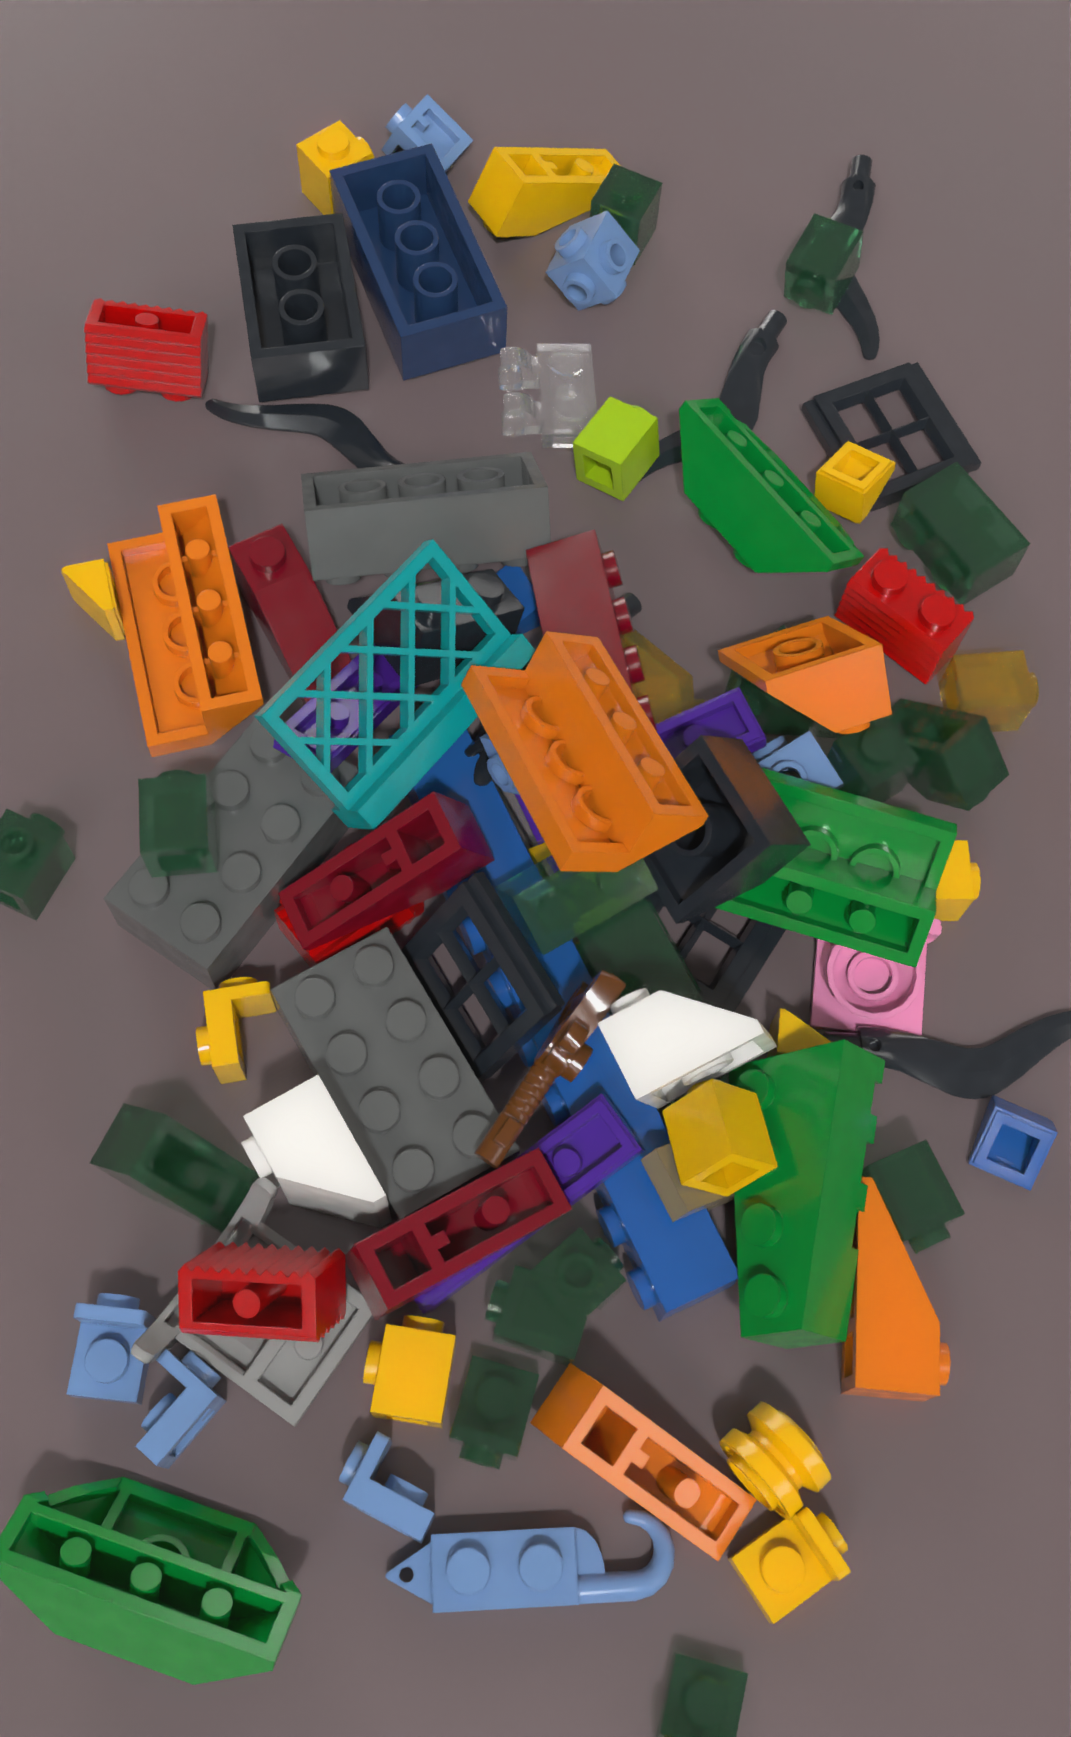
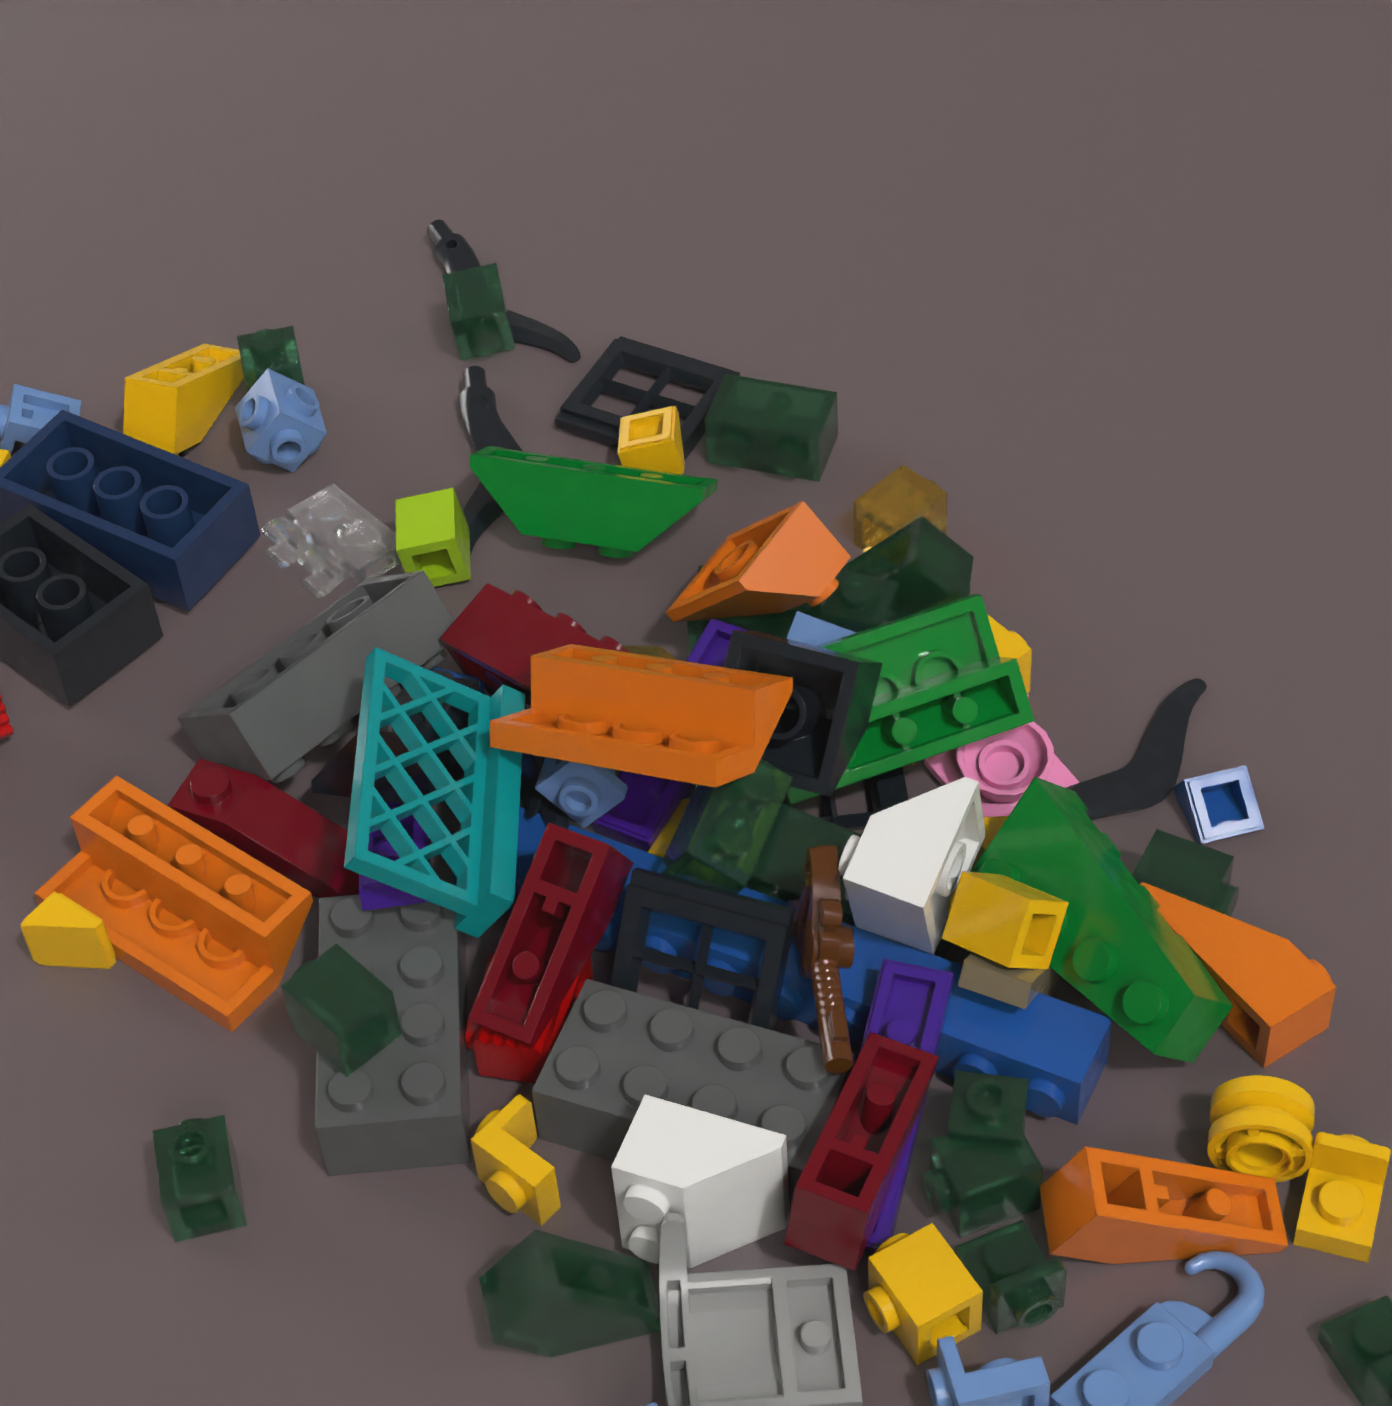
camera: 30 degrees left, 20 degrees down
(262, 1292) = (749, 1295): red brick -> none
(329, 422) = (137, 687): black piece -> none
(904, 614) = (762, 489): red brick -> none

